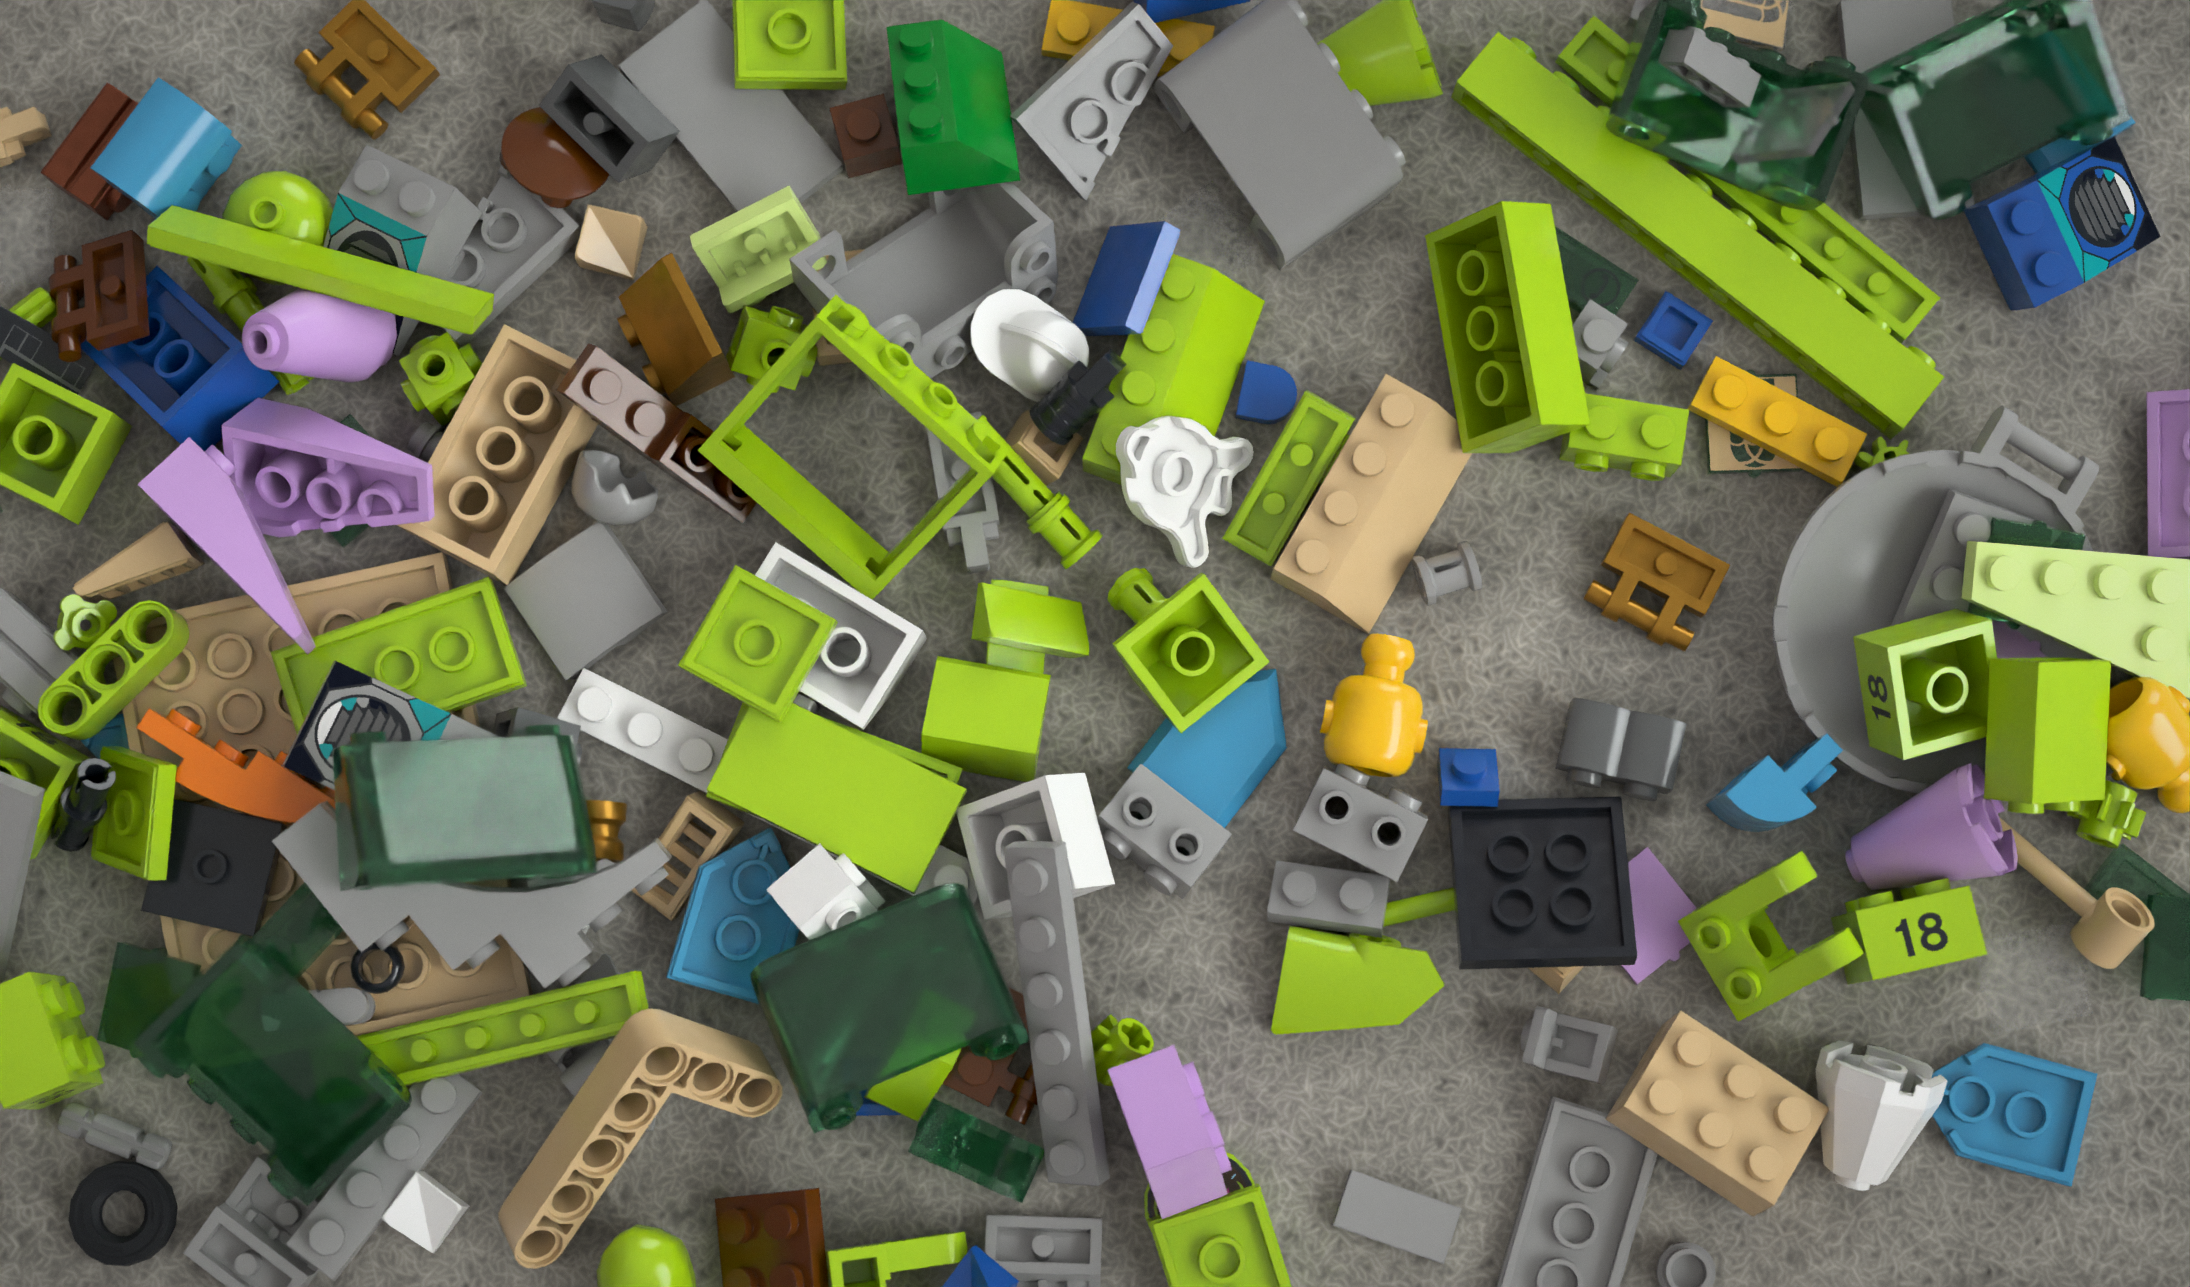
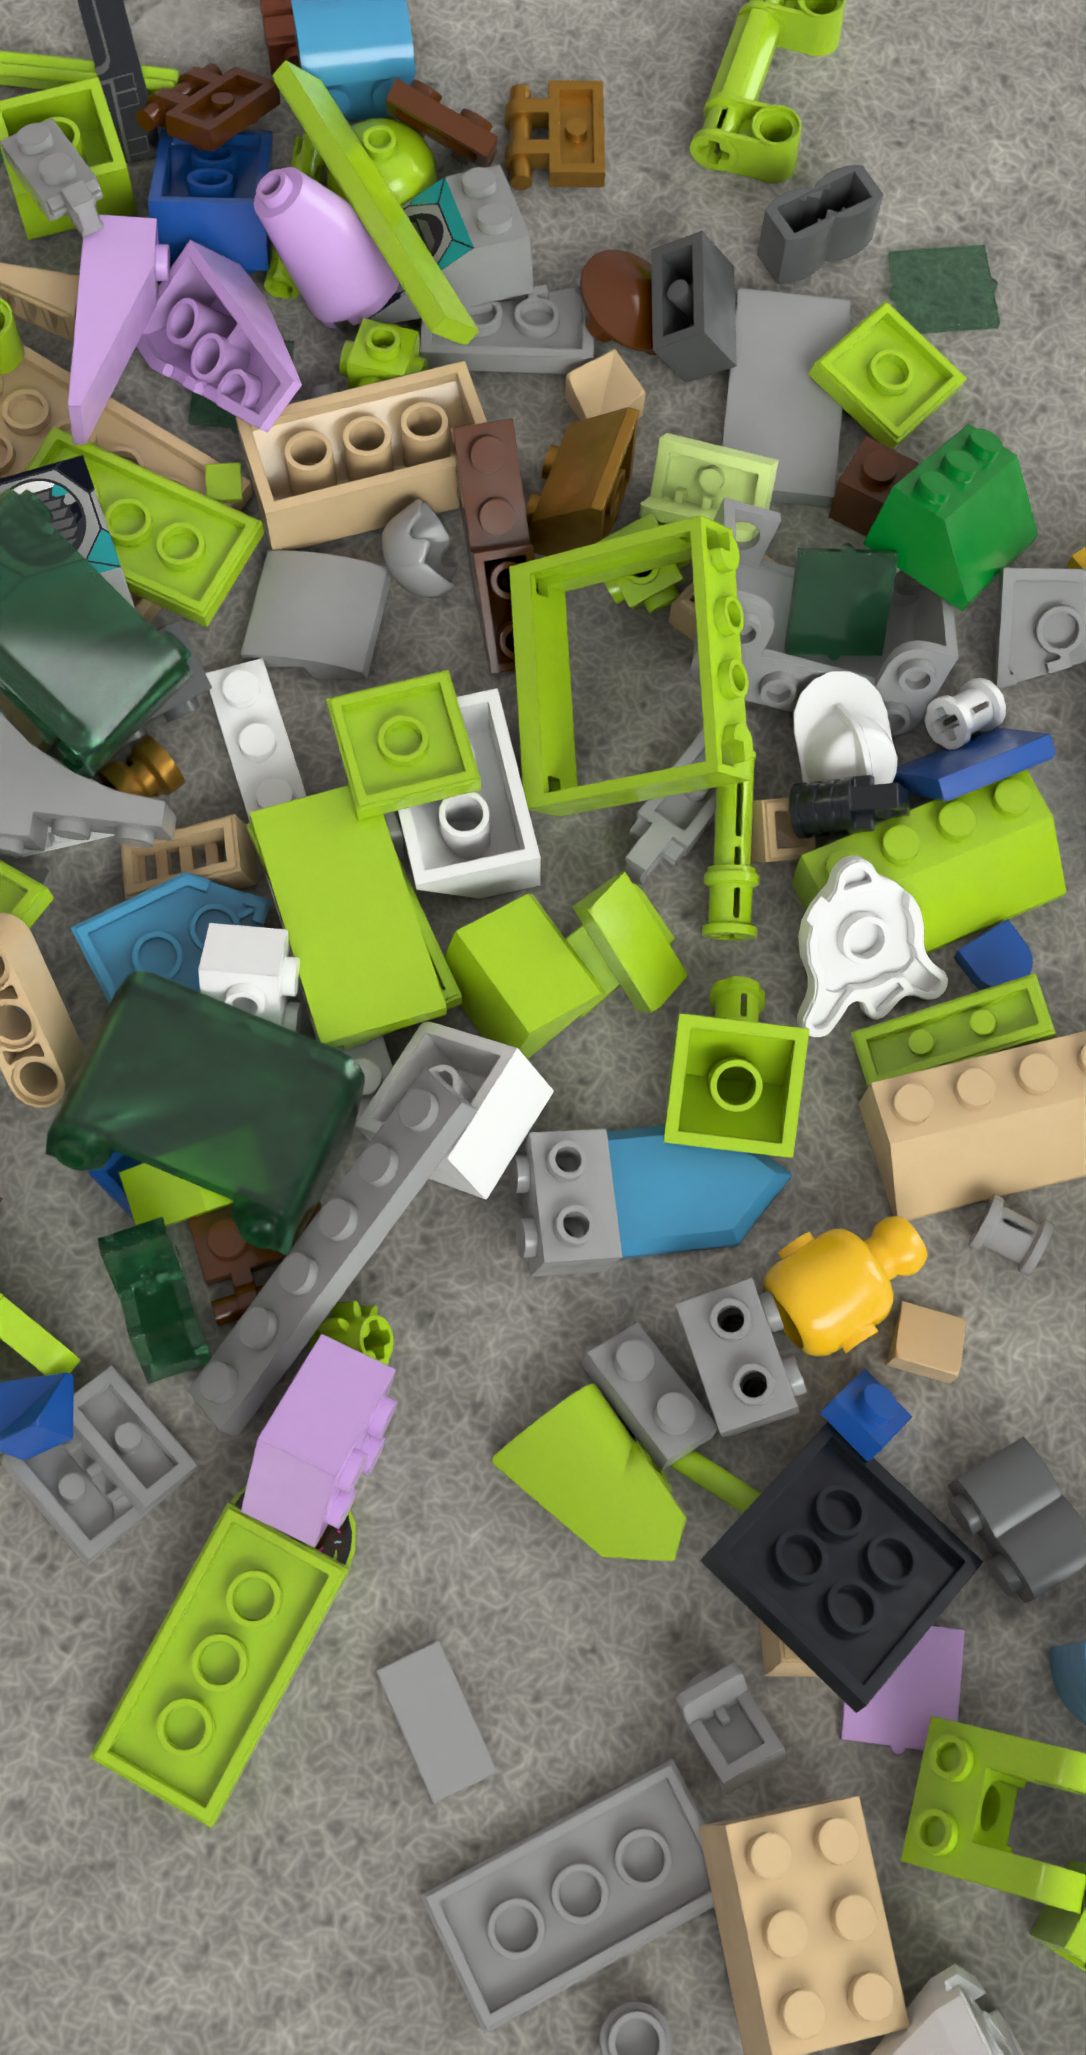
camera: 40 degrees right, 10 degrees down
(82, 475) = (55, 174): none -> light grey hinge
(276, 155) = (462, 133): none -> reddish brown plate
(426, 572) = (224, 482): none -> lime window
(932, 250) = (840, 601): none -> clear green piece
(1084, 242) = (970, 695): none -> white bush
(1460, 692) = (927, 1343): none -> tan slope

